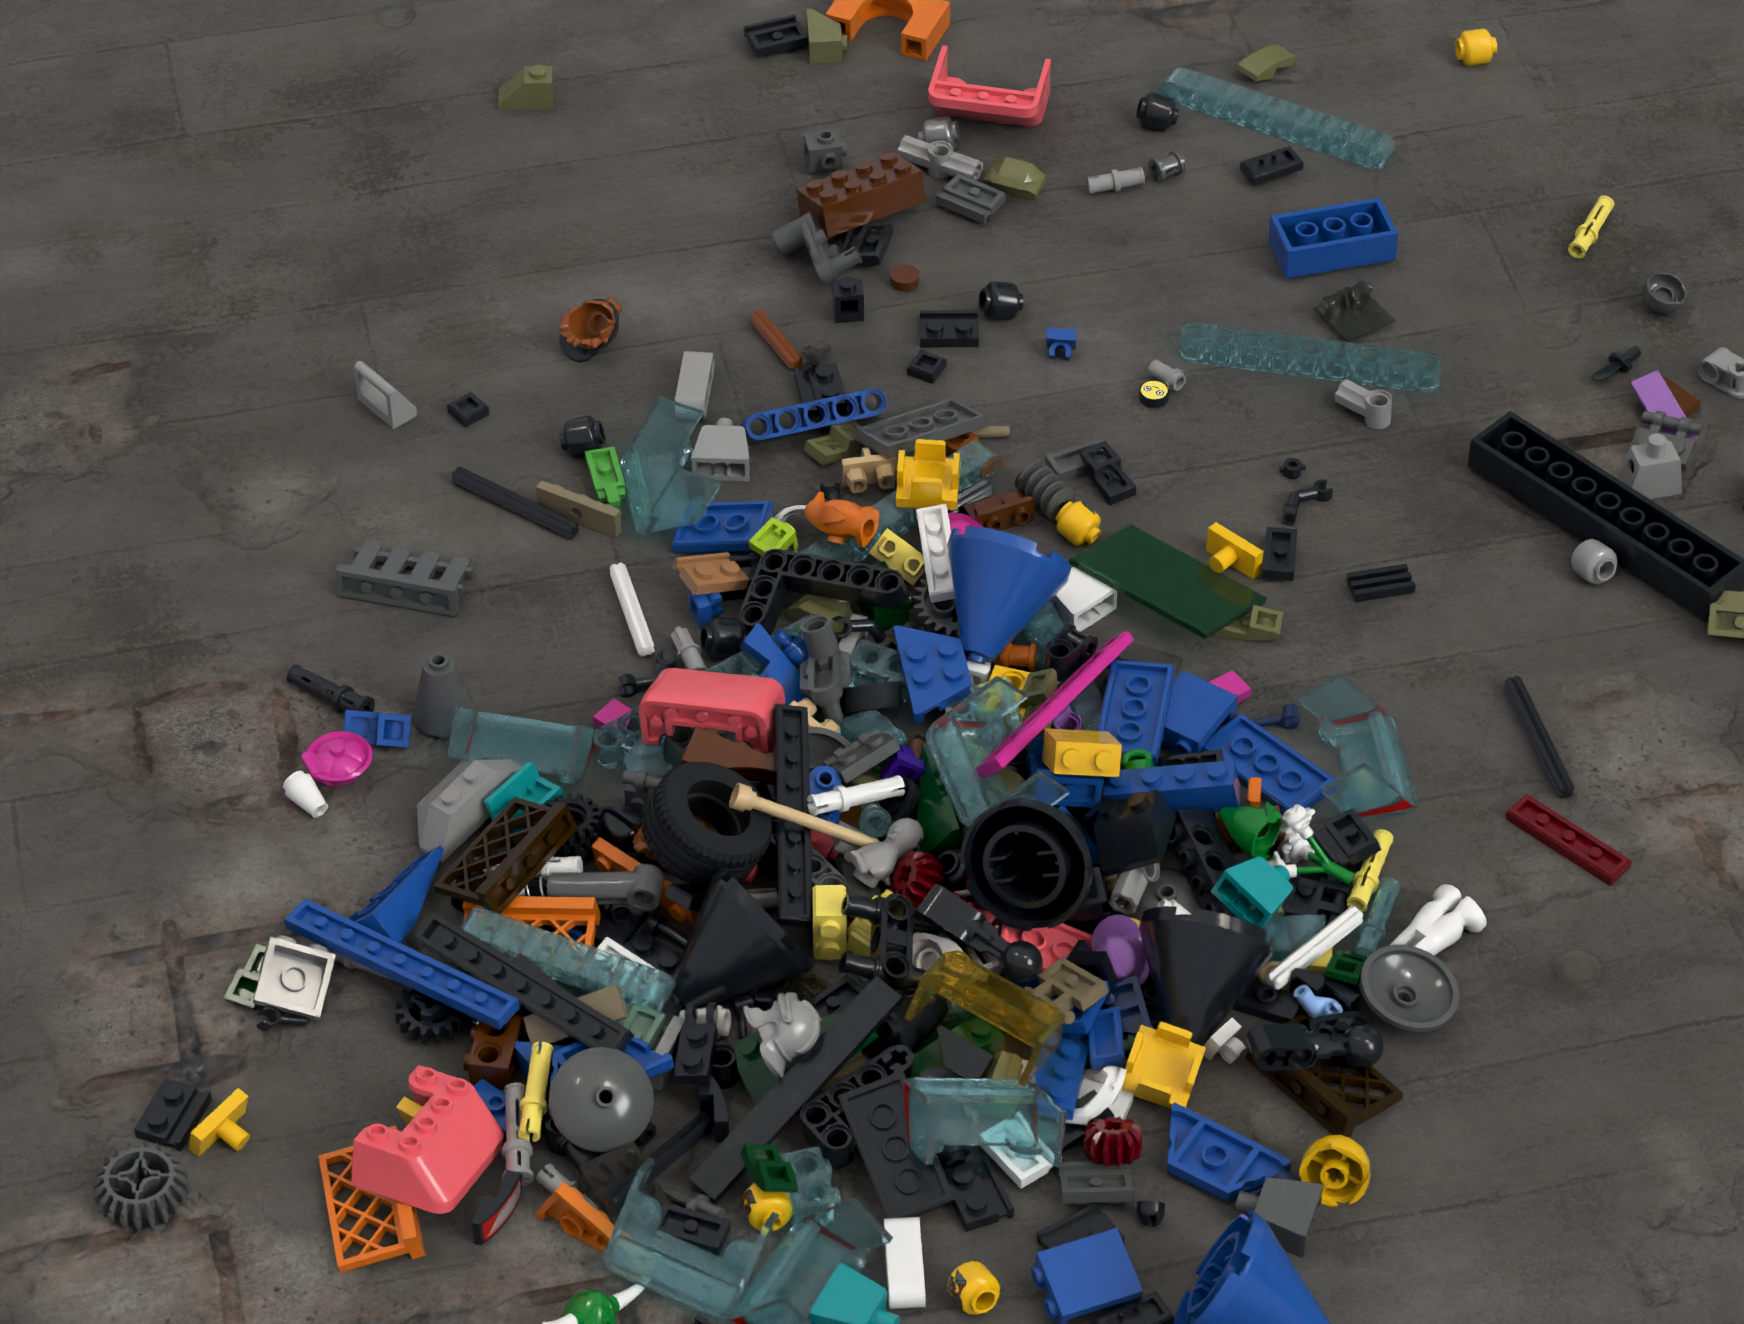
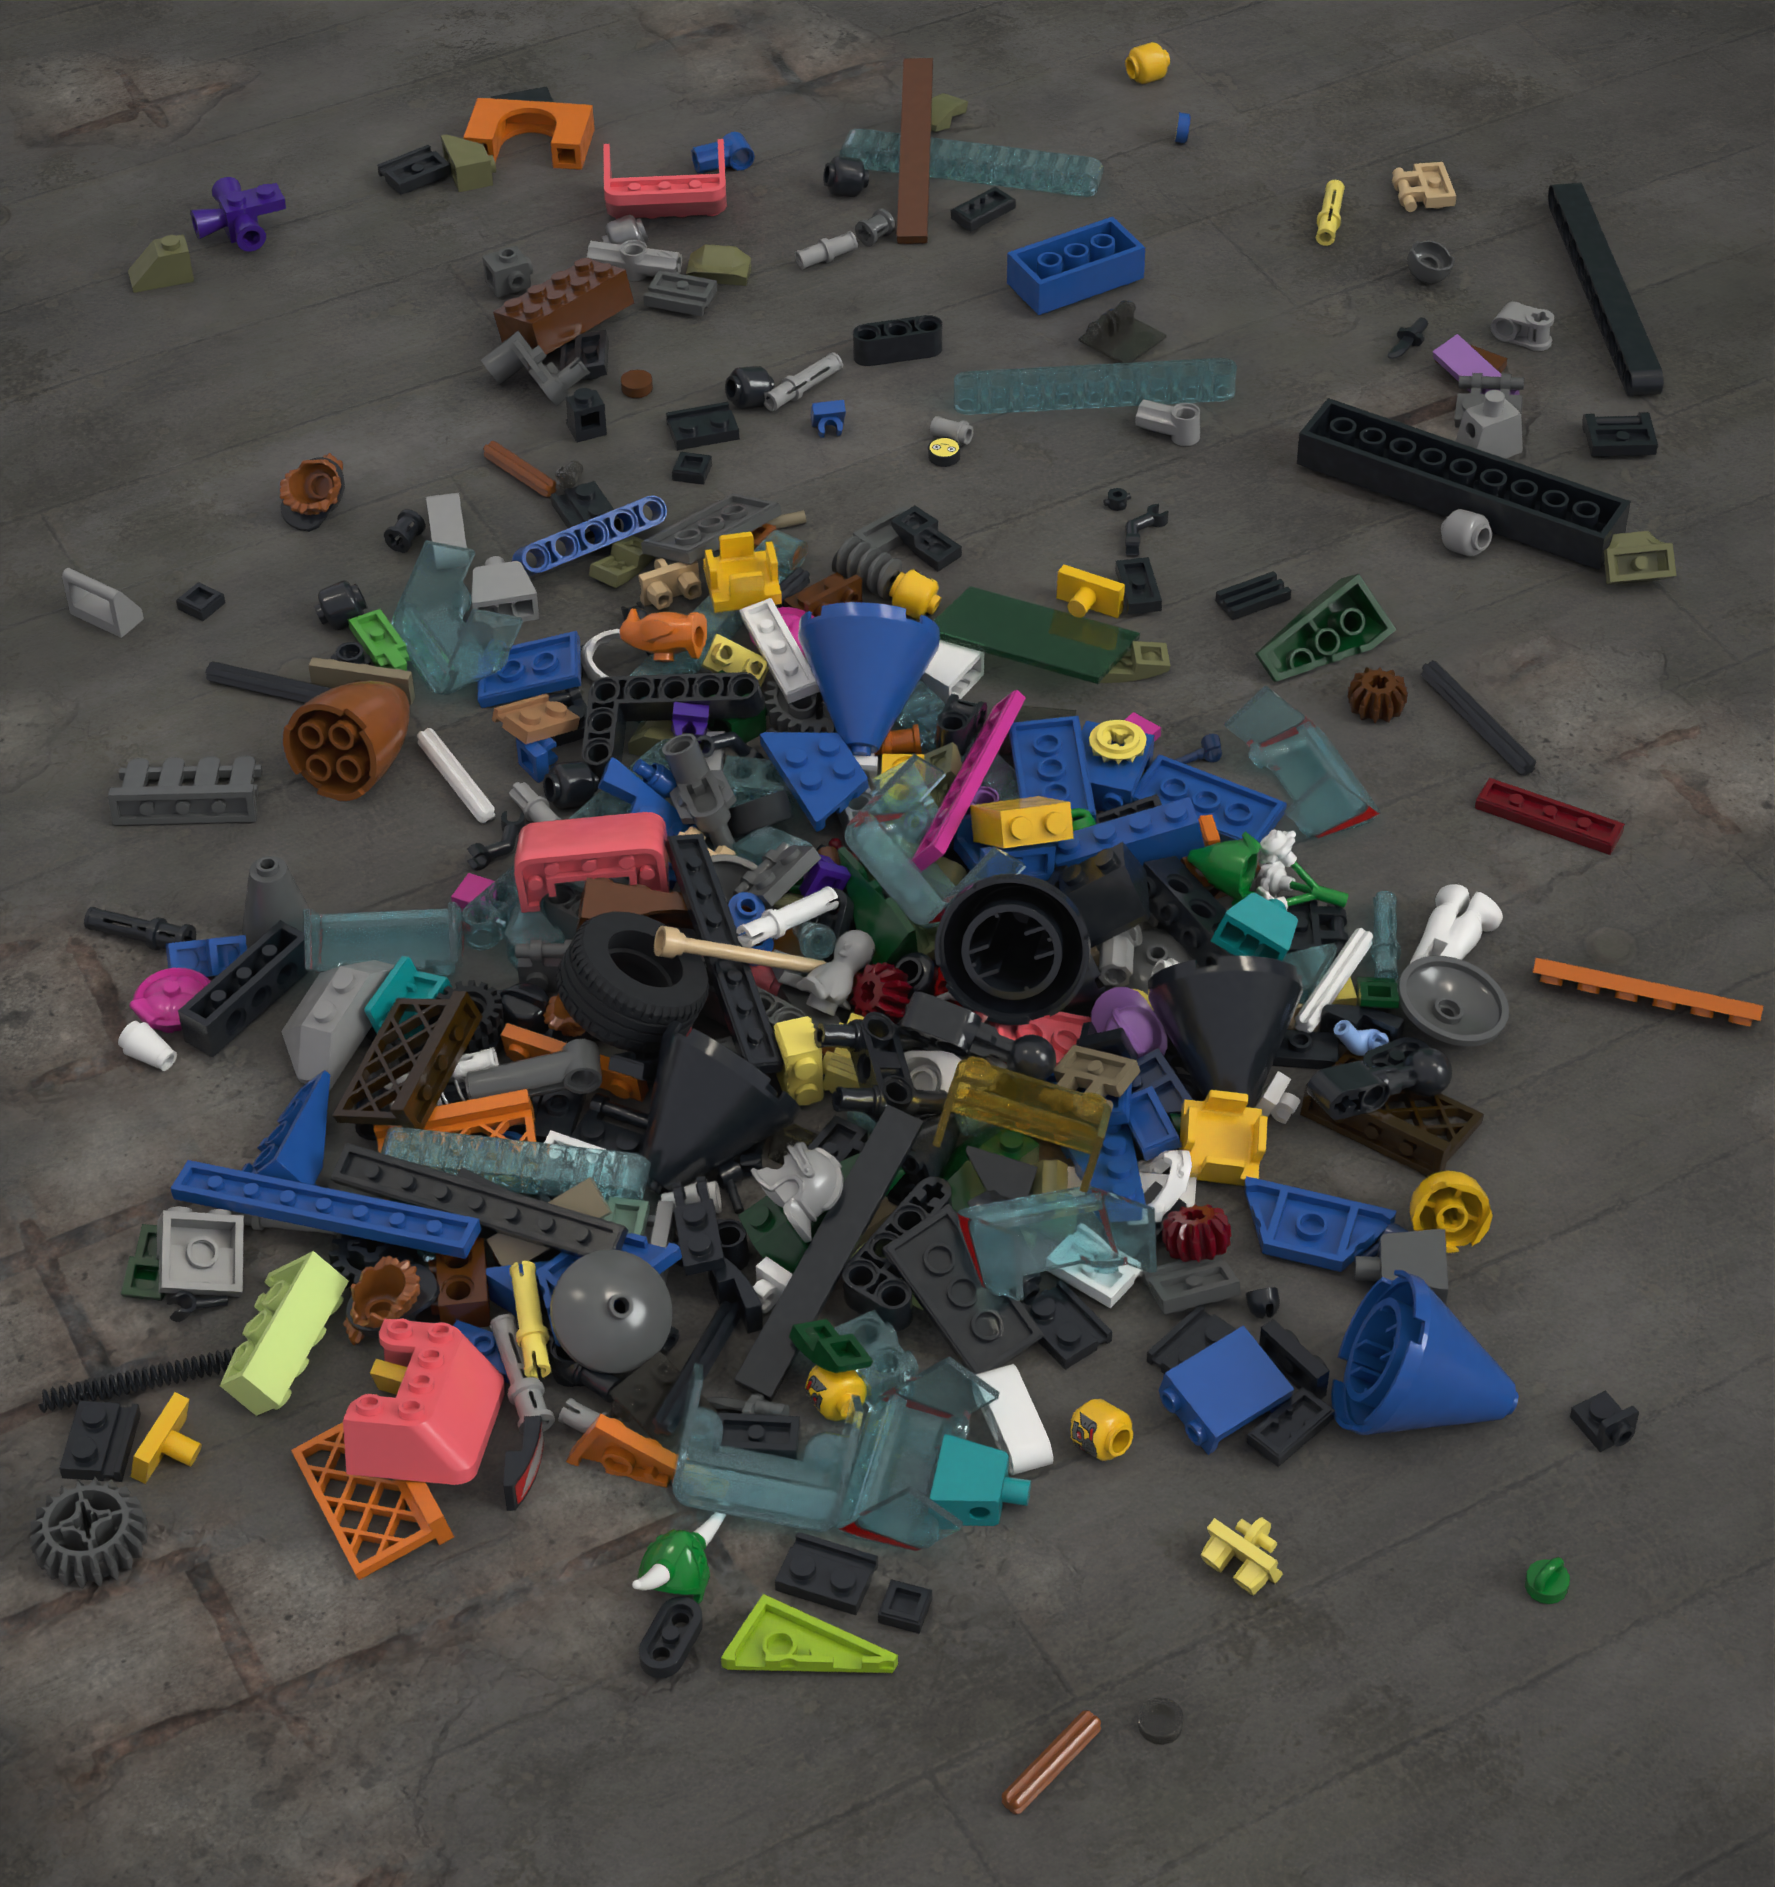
camera: 15 degrees left, 0 degrees up
(222, 1074) = (137, 1380): none -> black piece
(340, 1058) = (283, 1332): none -> yellowish green wedge
(395, 763) = (244, 989): none -> black brick
(431, 1045) = (388, 1292): none -> dark orange hair
(550, 557) = (347, 733): none -> dark orange cylinder
(577, 483) = (352, 653): none -> black plate
(608, 51) = (238, 212): none -> dark purple brick
(657, 384) = (405, 532): none -> black bush
(744, 1102) = (770, 1283): none -> white tile
(774, 536) = (593, 665): lime bracket -> none
(839, 600) = (689, 719): none -> dark purple tile
(1040, 307) = (794, 386): none -> light grey pin
(1064, 69) = (736, 154): none -> blue piece
(1148, 280) = (897, 340): none -> black beam
(1152, 1259) = (1294, 1359): none -> black plate
(1208, 687) = (1121, 732): none -> light yellow gear
(1225, 99) = (915, 151): none -> reddish brown tile
(1346, 839) = (1327, 859): black plate -> none
(1366, 880) = (1358, 861): light yellow pin -> none
(1436, 628) = (1330, 628): none -> dark green wedge
(1454, 697) = (1377, 694): none -> reddish brown gear
(1484, 118) = (1182, 127): none -> blue tile
(1602, 1022) = (1664, 995): none -> orange plate
(1698, 219) = (1432, 186): none -> tan plate

